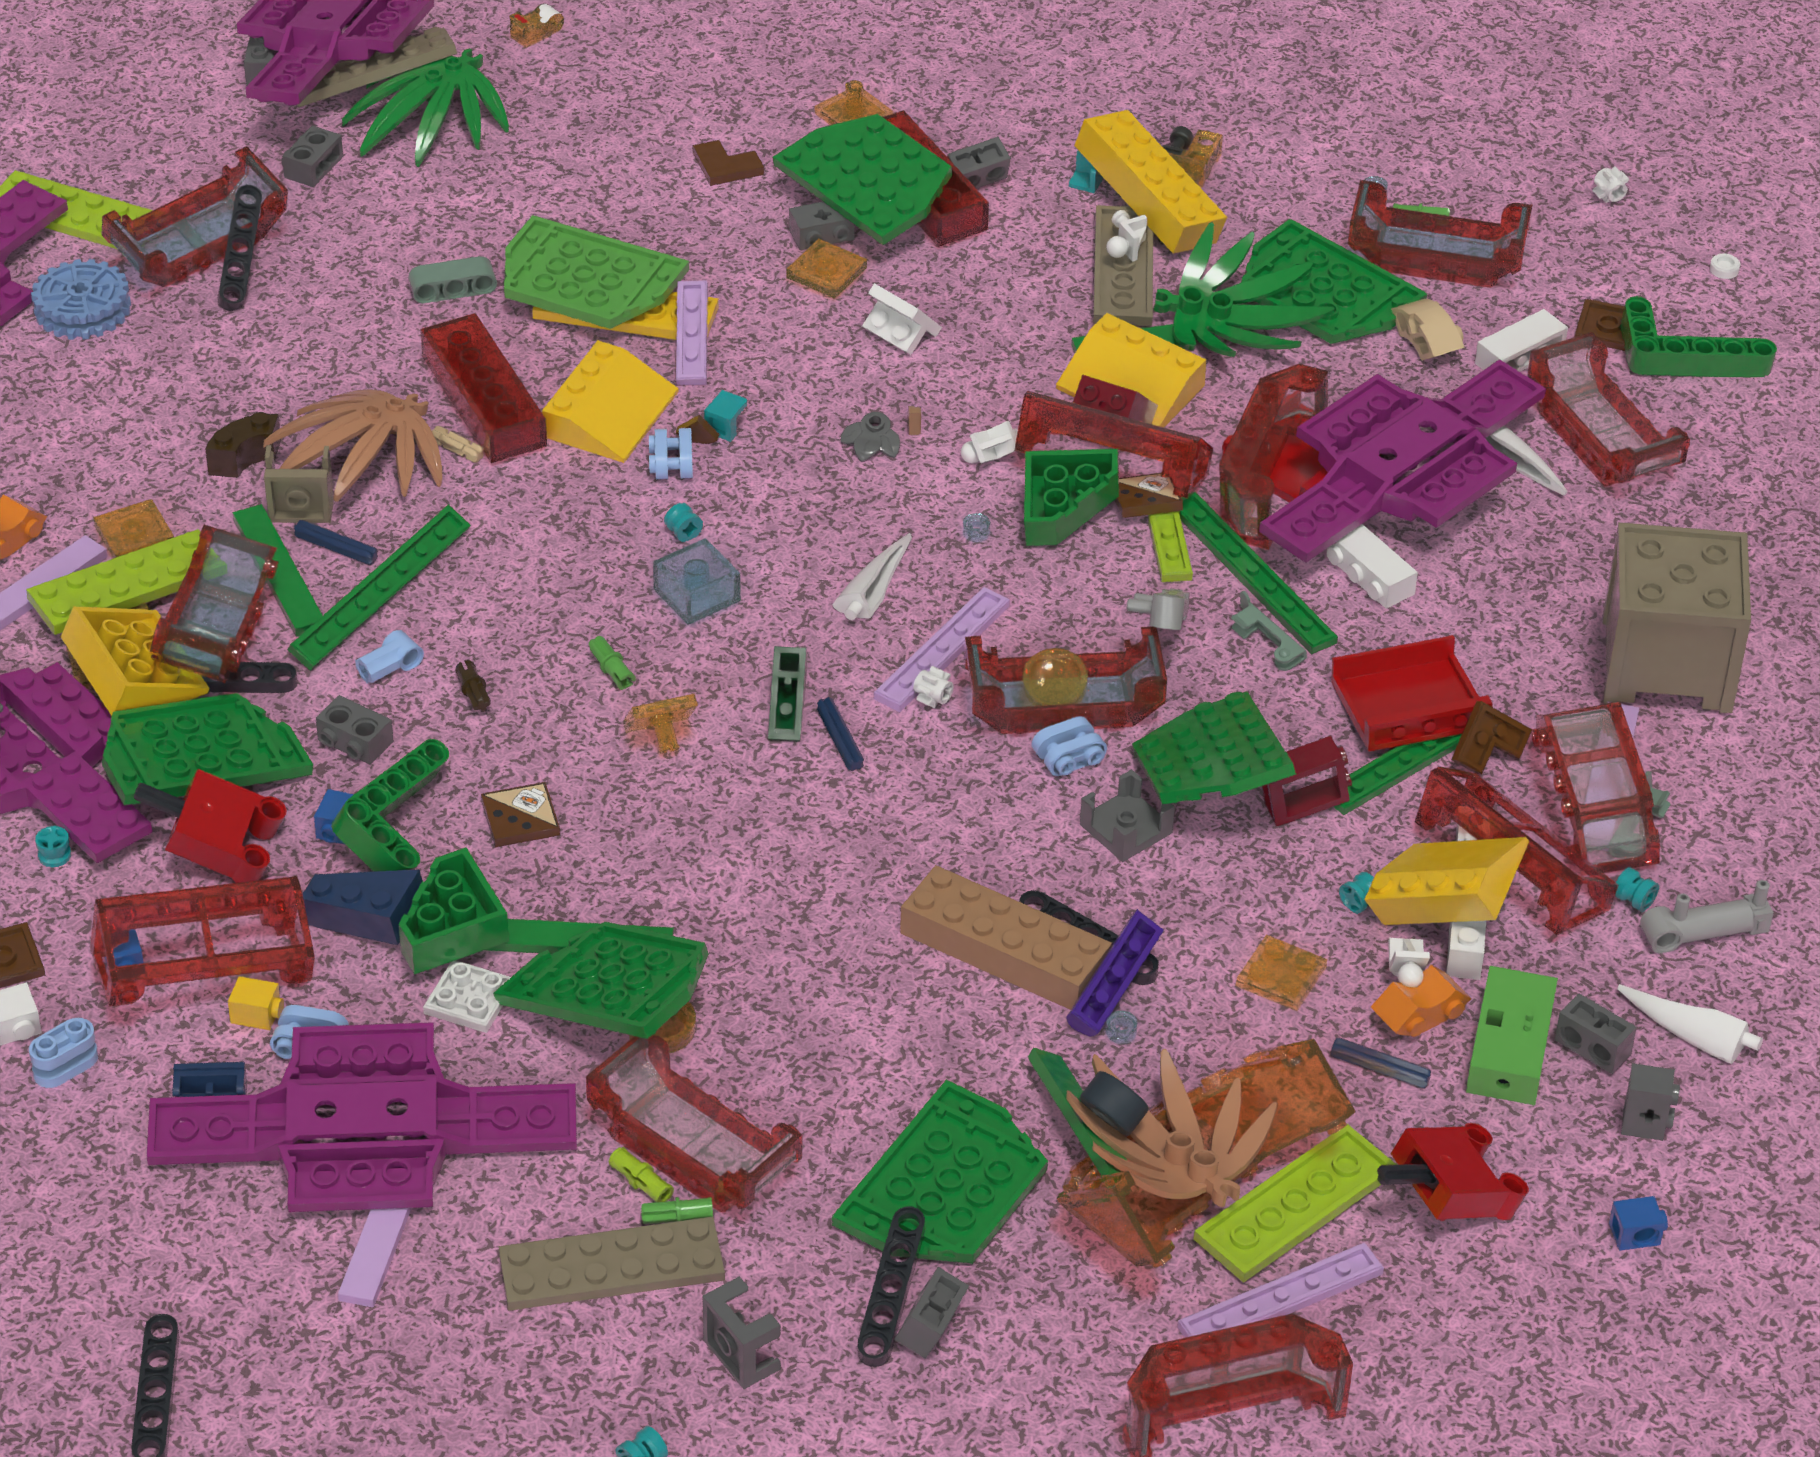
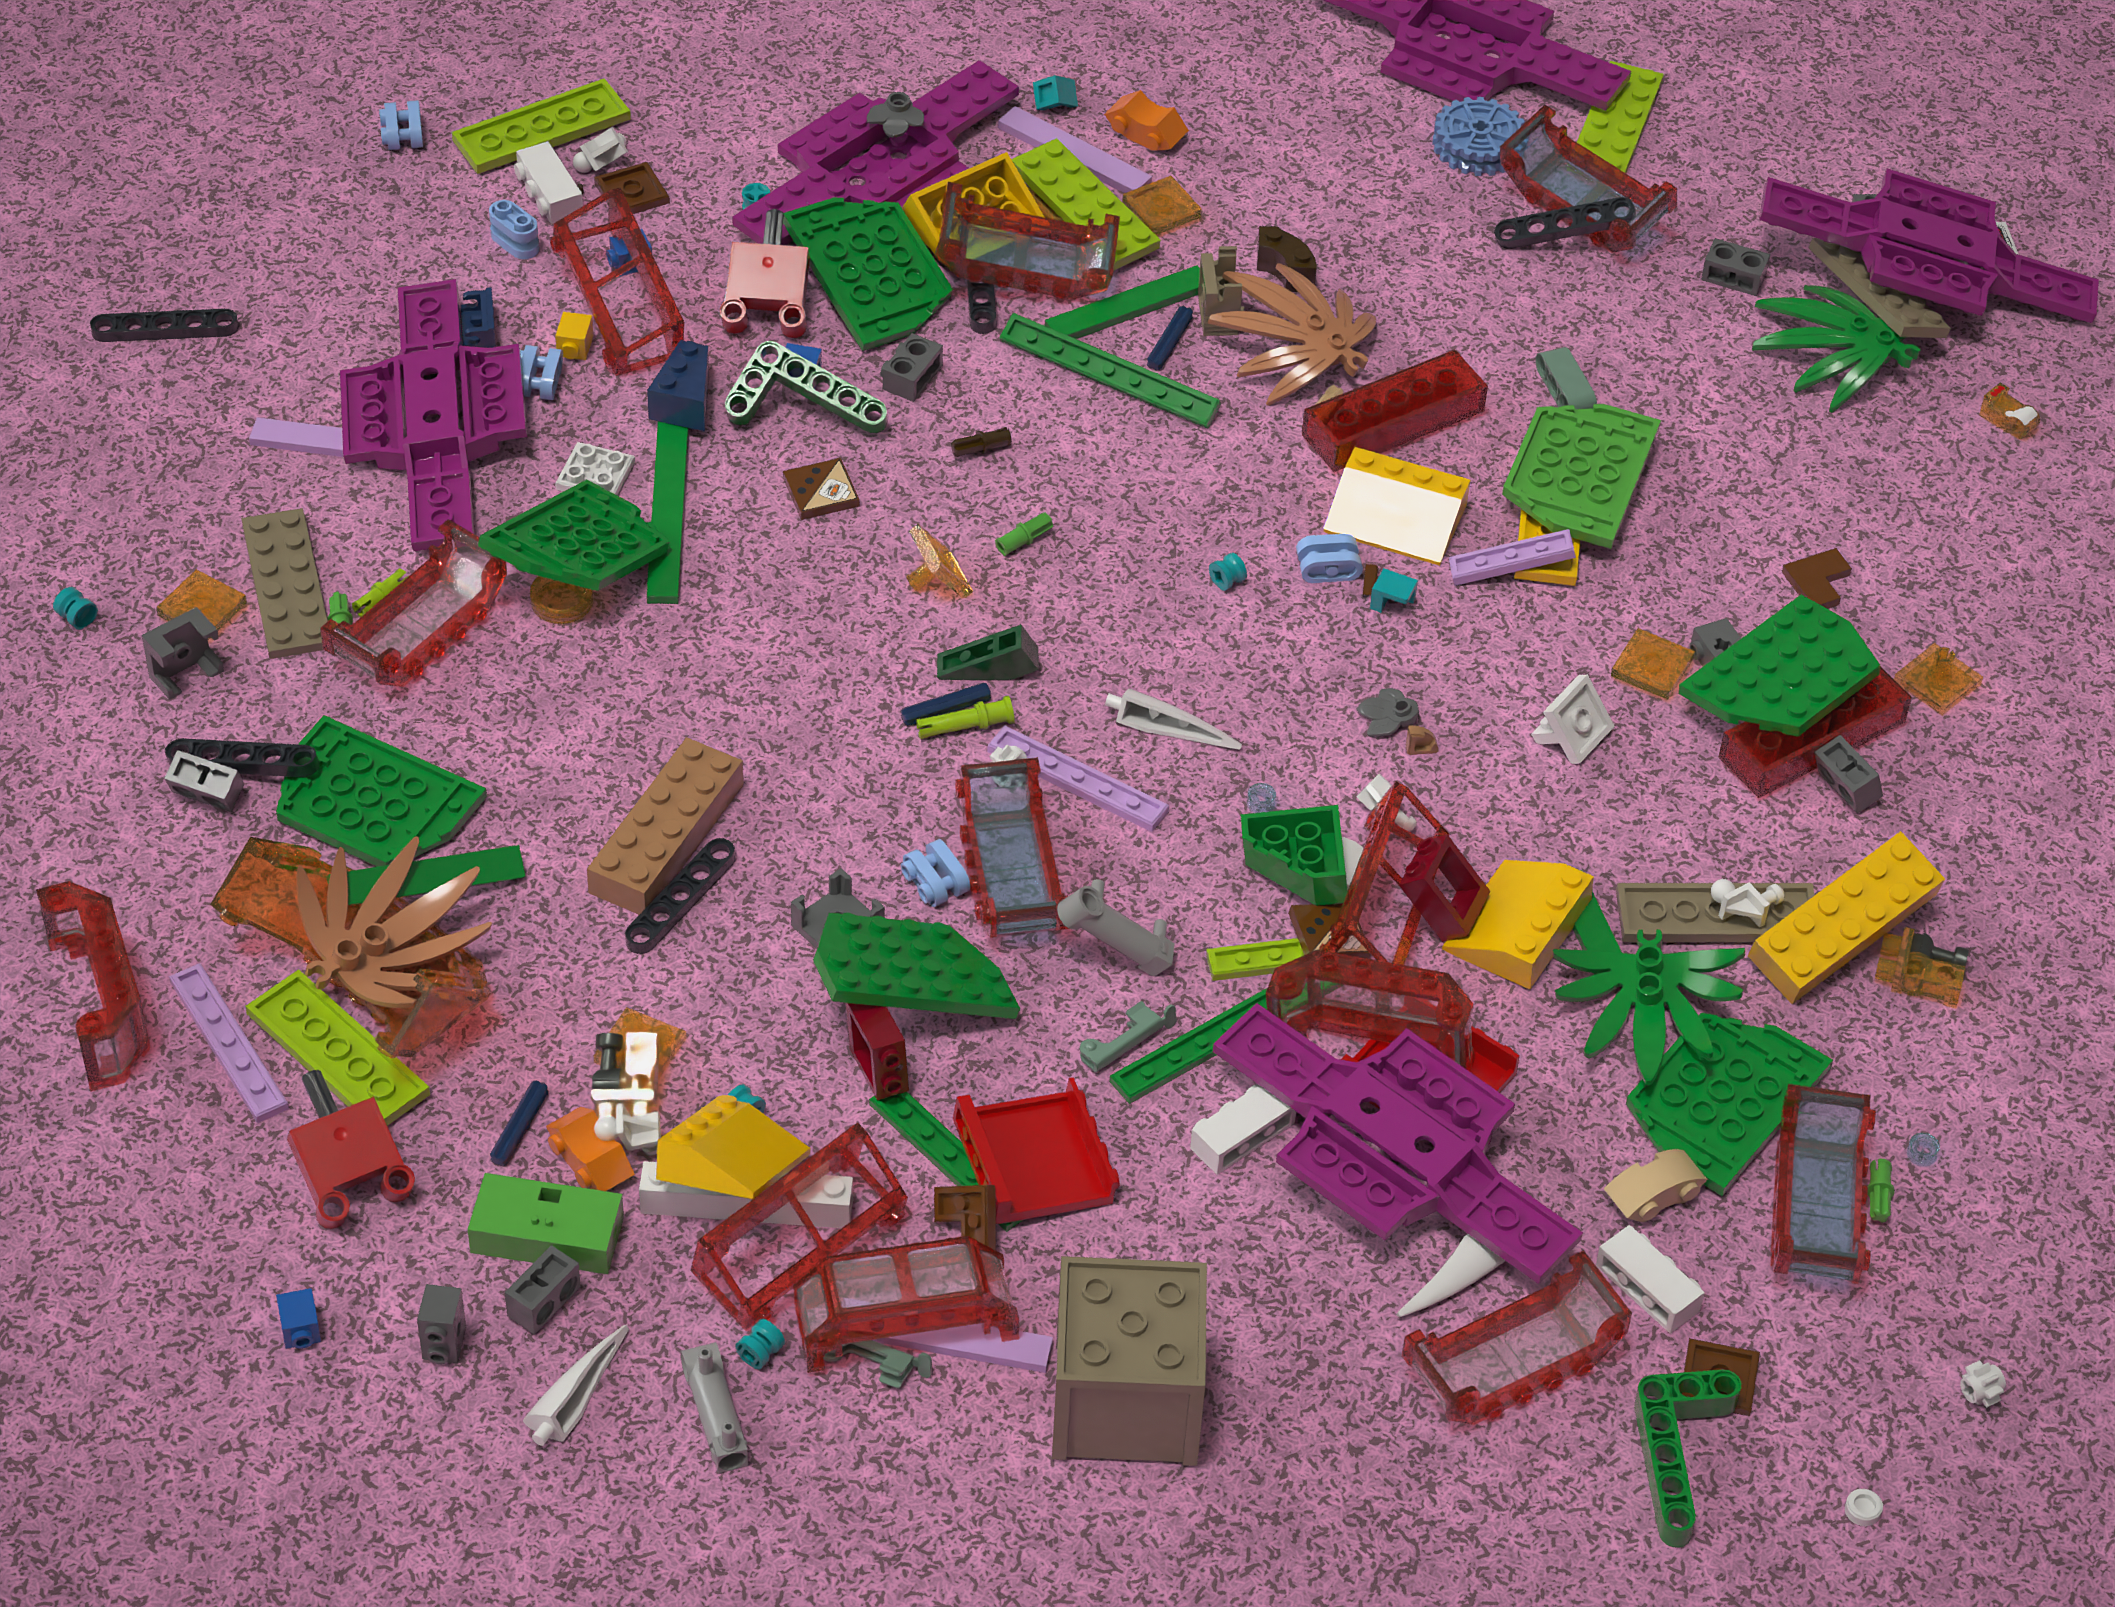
camera: 85 degrees right, 5 degrees up
(395, 653) = (1016, 387): light blue piece -> none
(452, 914) = (666, 434): green brick -> none
(645, 1335) = (211, 597): none -> clear yellow plate
(696, 581) = (1133, 579): clear light blue brick -> none
(863, 707) = (981, 716): none -> lime pin
(1055, 678) = (1013, 848): clear yellow piece -> none
(1114, 974) = (615, 902): dark purple brick -> none
(1114, 1102) = (408, 875): black wheel -> none
(1121, 1018) = (557, 928): clear light blue bush -> none
(1347, 964) = (636, 1083): none -> hips

